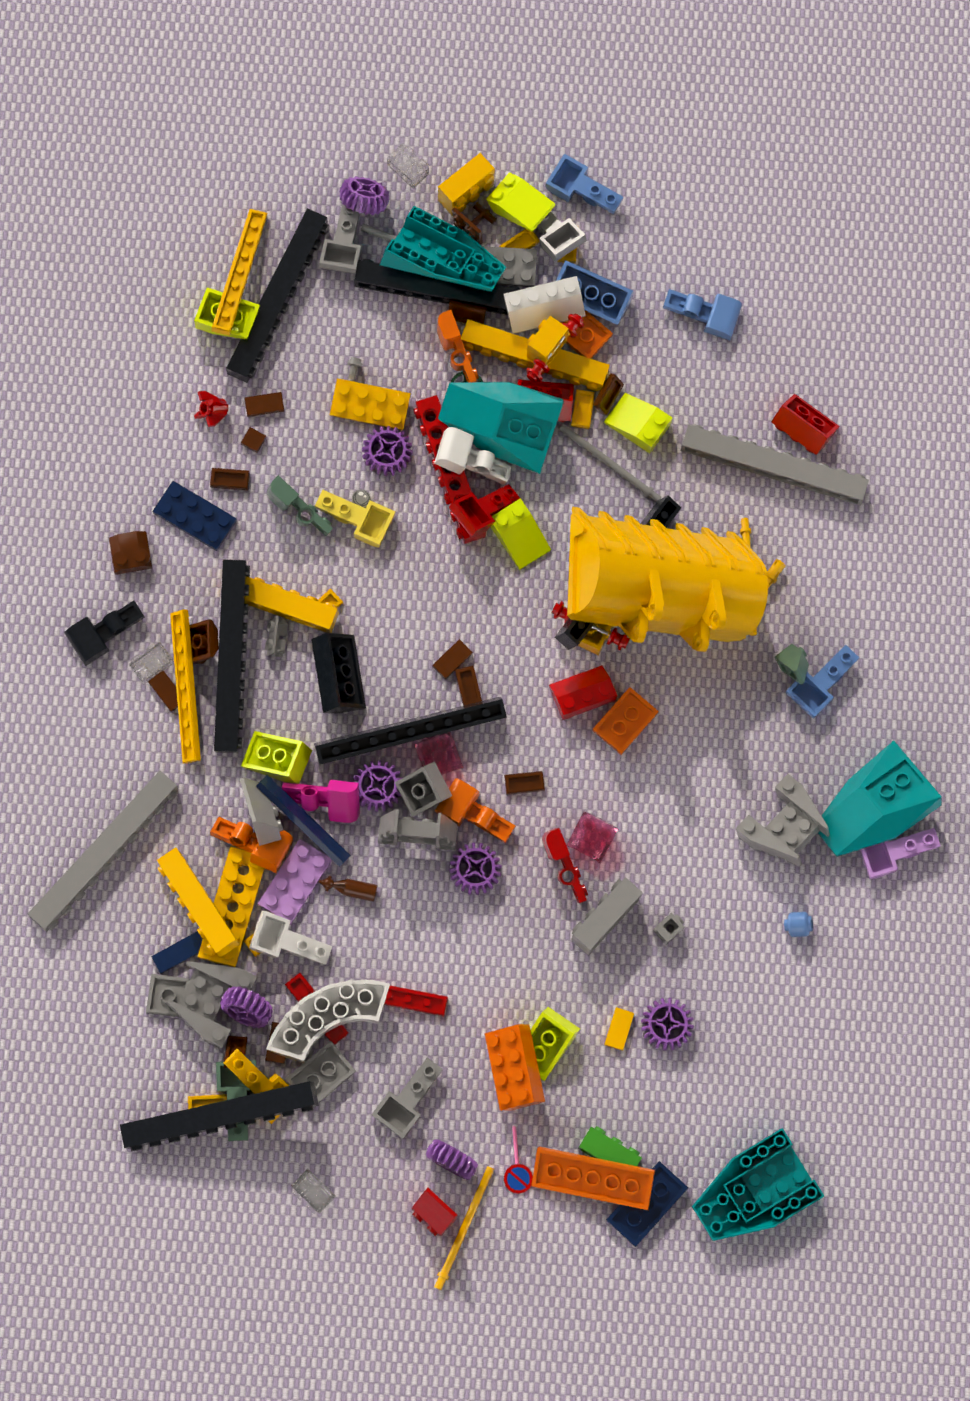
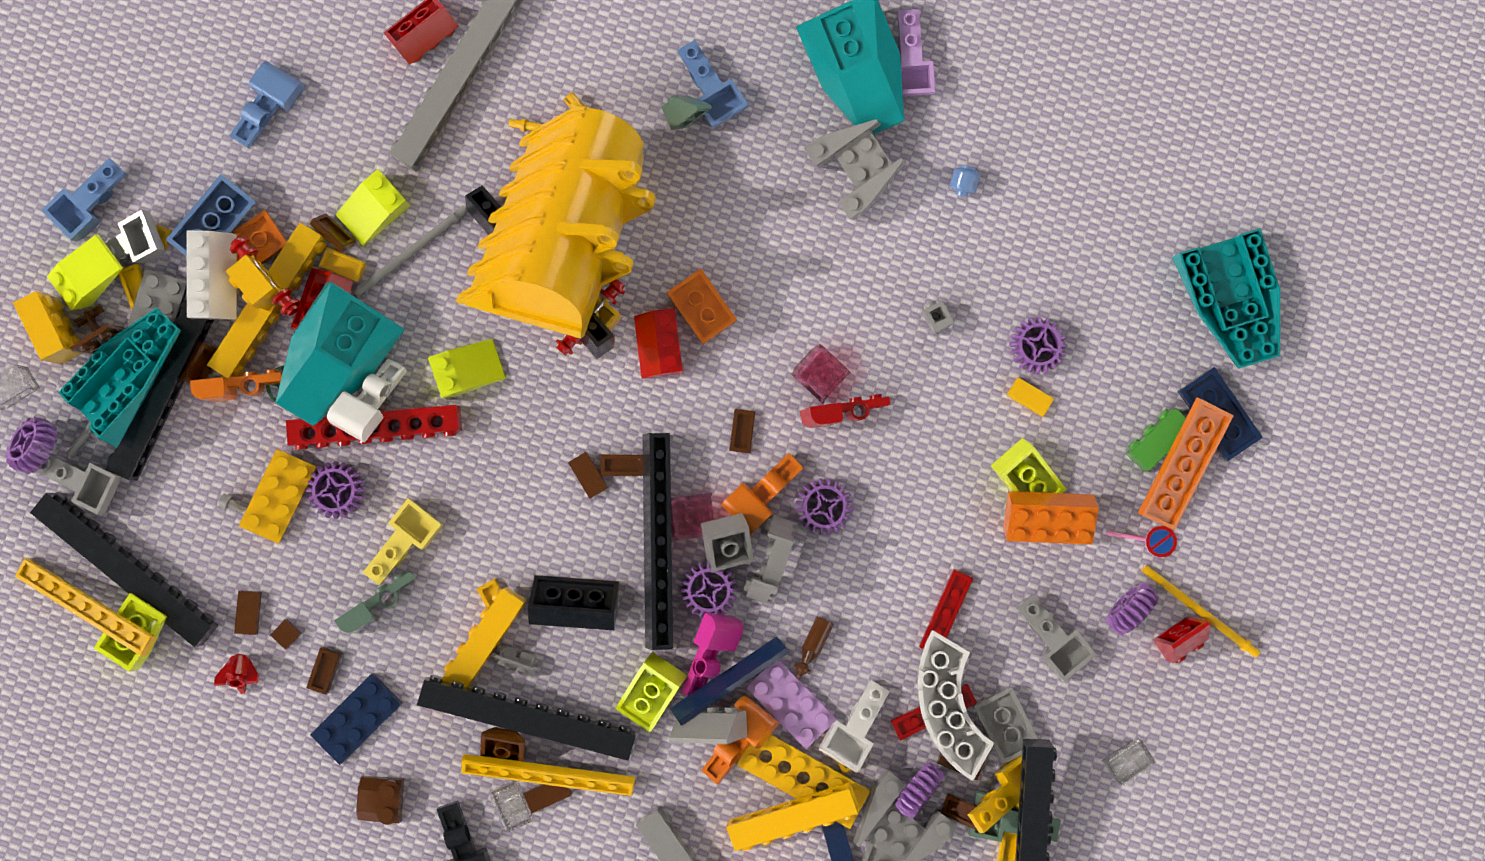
camera: 70 degrees left, 10 degrees up
(361, 498) = (382, 531): light grey tile -> none
(477, 514) = (432, 410): red plate -> none
(606, 916) = (911, 380): light grey brick -> none

